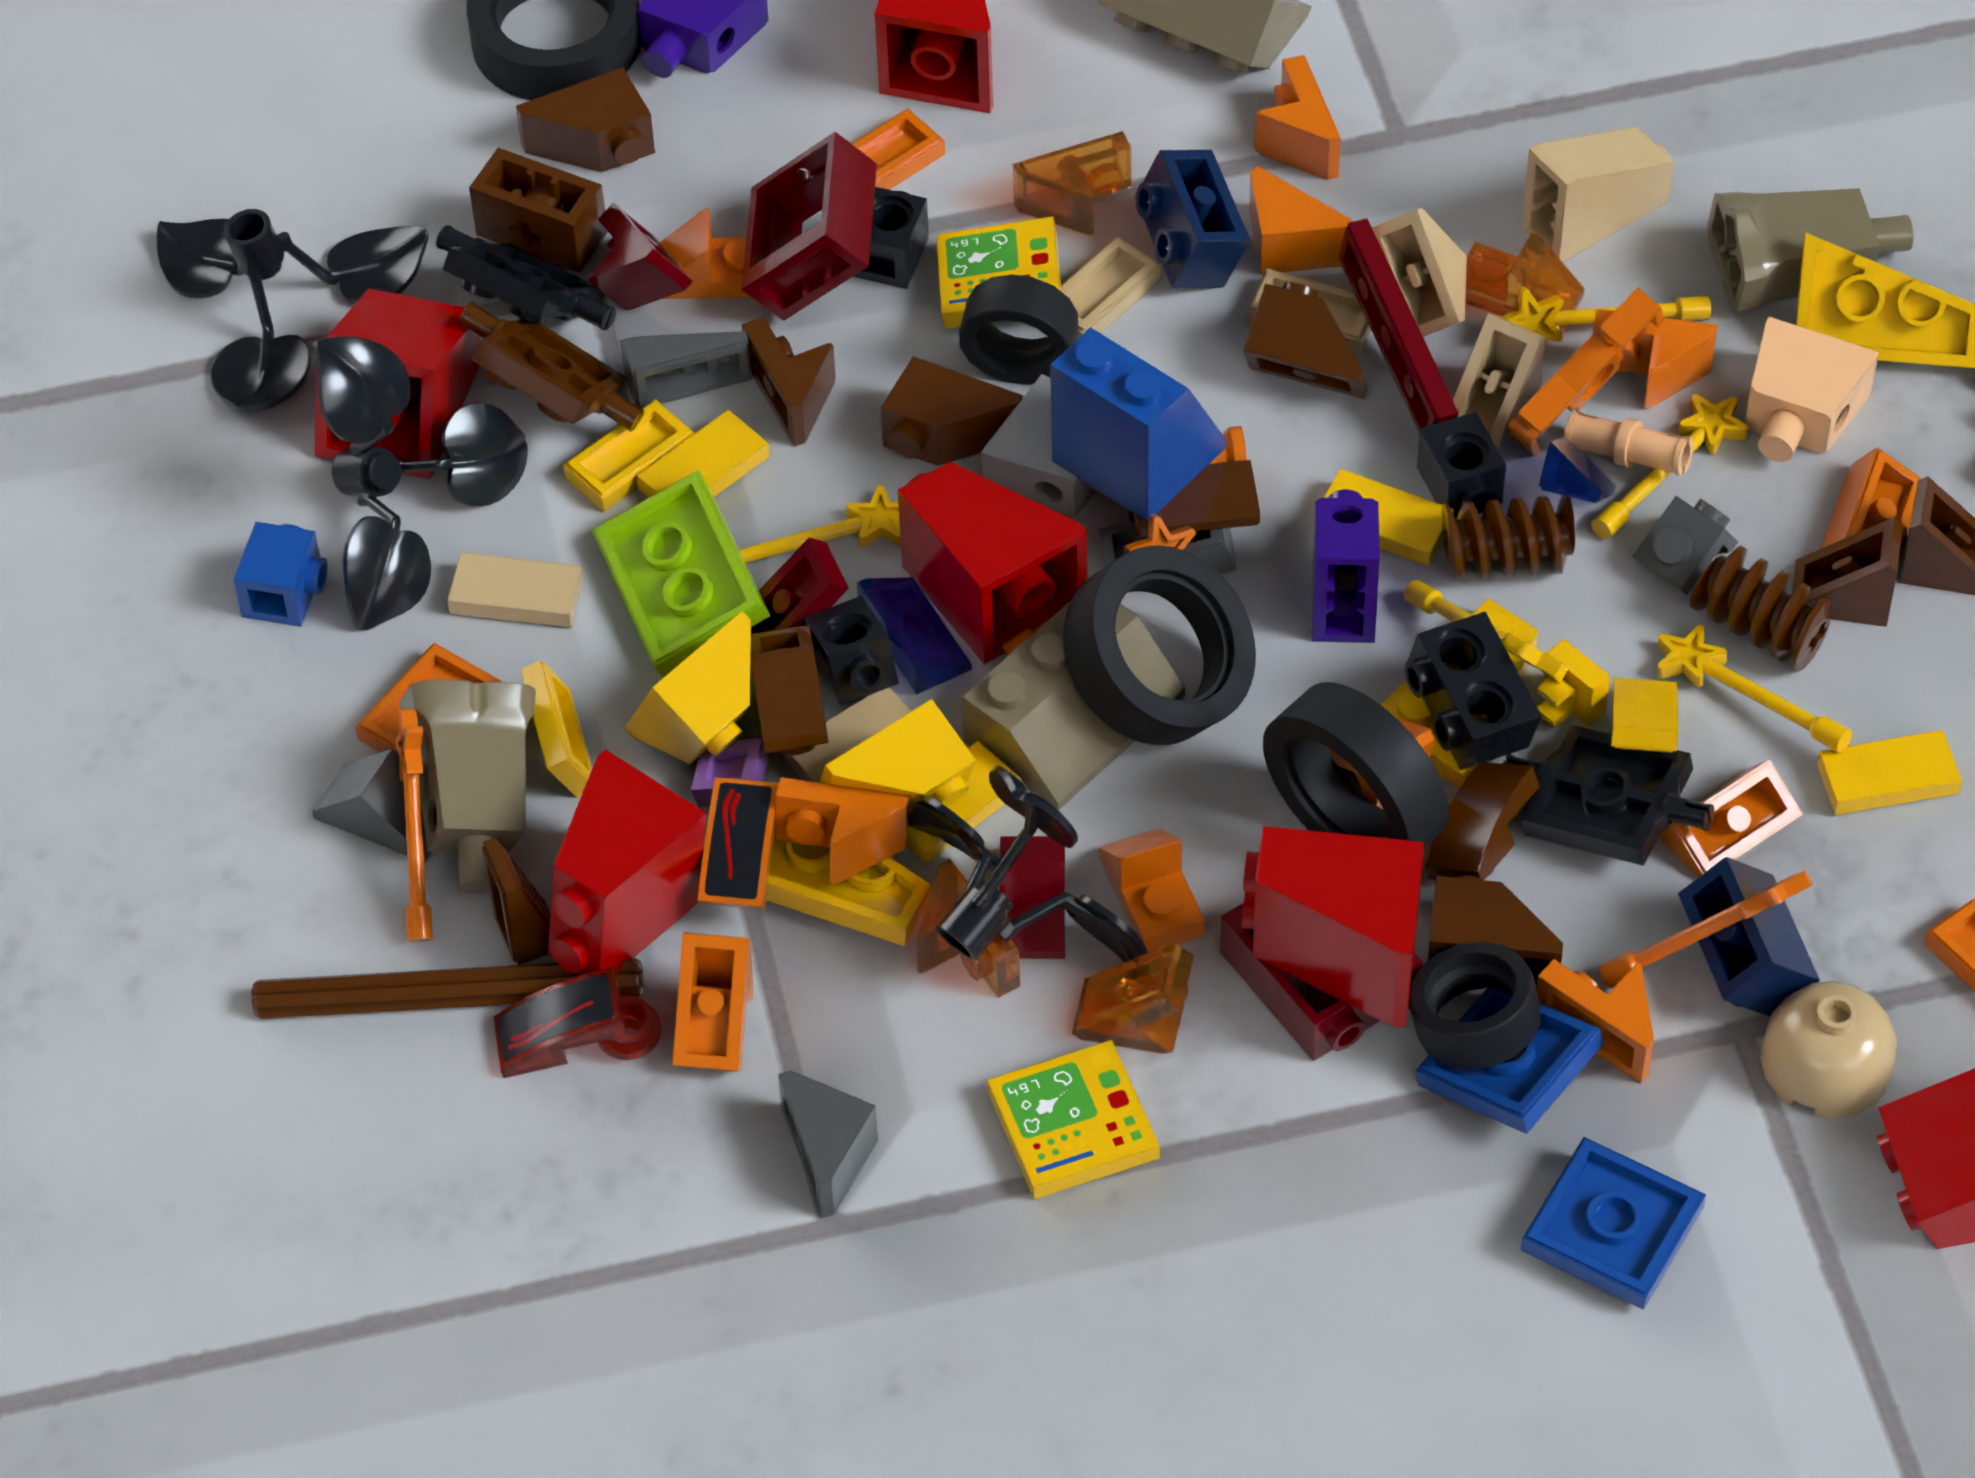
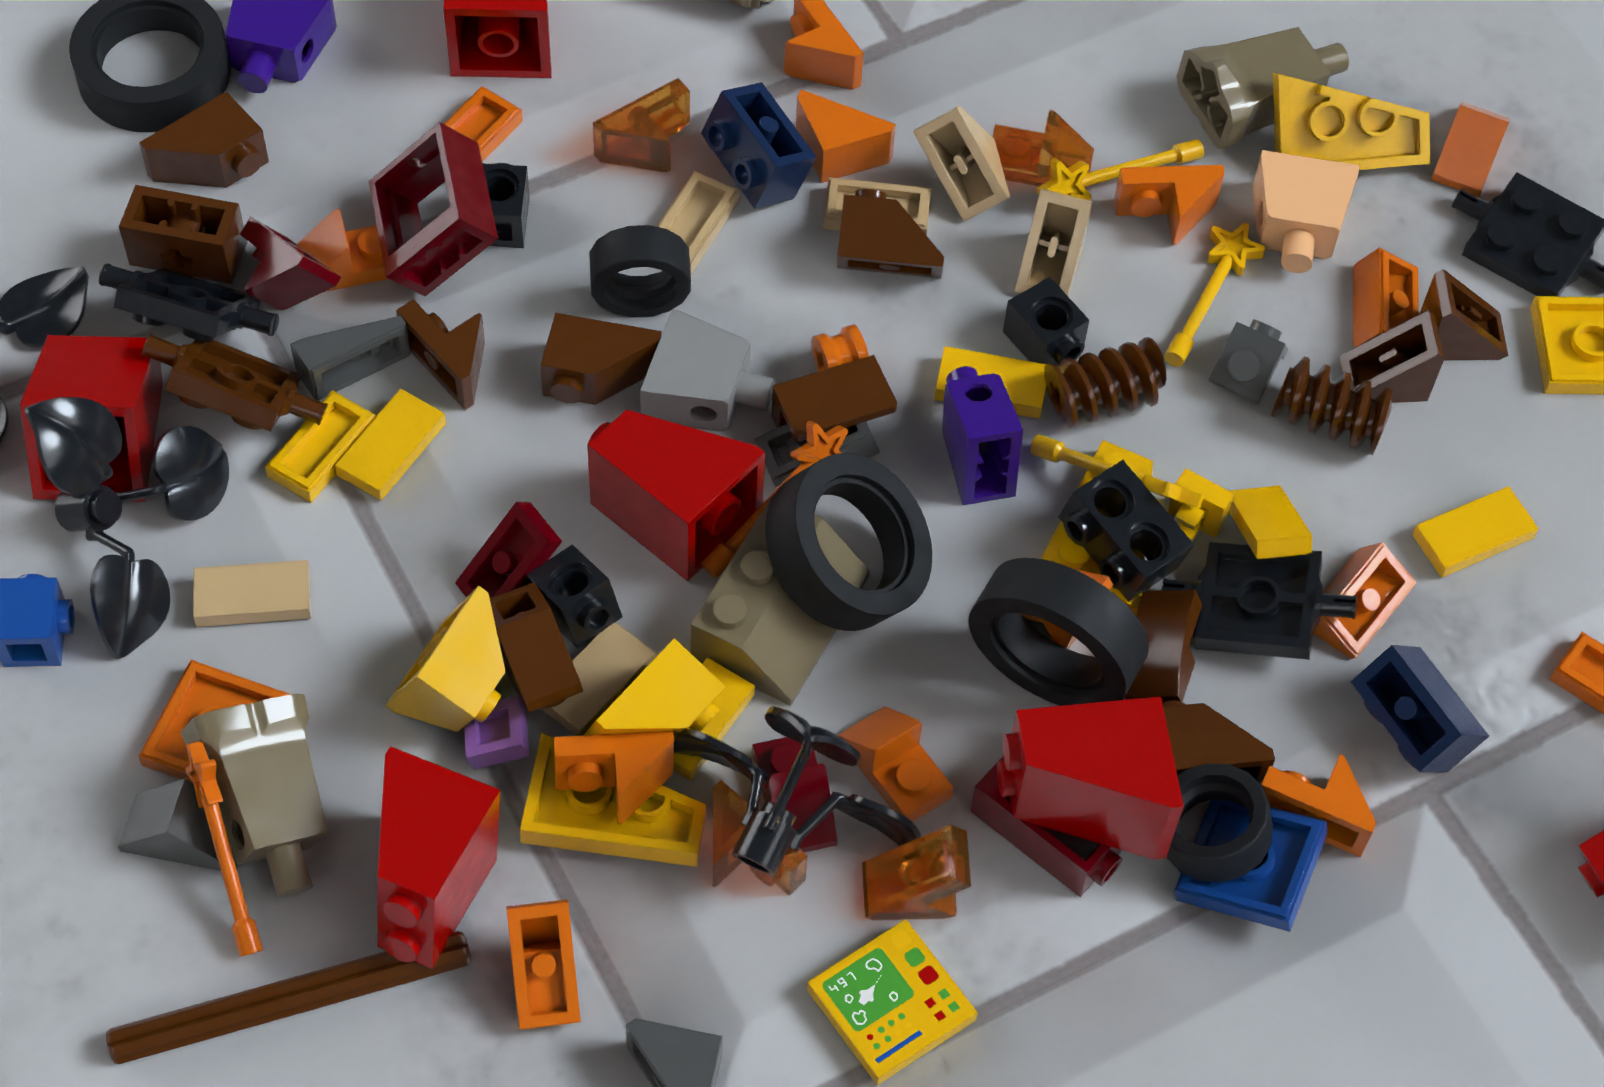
camera: 20 degrees left, 5 degrees up
(516, 905) = (339, 907): reddish brown slope -> none
(557, 1018) = (403, 1009): slope -> none
(558, 728) = (330, 722): yellow tile -> none
(638, 1044) = (468, 985): clear red plate -> none
(678, 570) = (399, 551): lime tile -> none
(738, 843) = (528, 804): black slope -> none
(868, 519) = (555, 465): yellow piece -> none
(915, 632) = (633, 574): clear blue slope -> none
(993, 251) = (592, 209): tile -> none
(1127, 425) = (770, 348): blue slope -> none
(1394, 327) = (959, 215): dark red tile -> none
(1573, 474) = (1145, 320): clear blue slope -> none
(1585, 370) = (1120, 244): orange piece -> none
(1593, 187) = (1080, 61): tan slope -> none
(1613, 1222) = (1385, 998): blue plate -> none
(1616, 968) = (1438, 682): orange piece -> none
(1629, 443) = (1176, 279): light nougat pin -> none
(1694, 657) = (1292, 460): yellow piece -> none
(1829, 1049) = (1511, 795): tan cylinder -> none

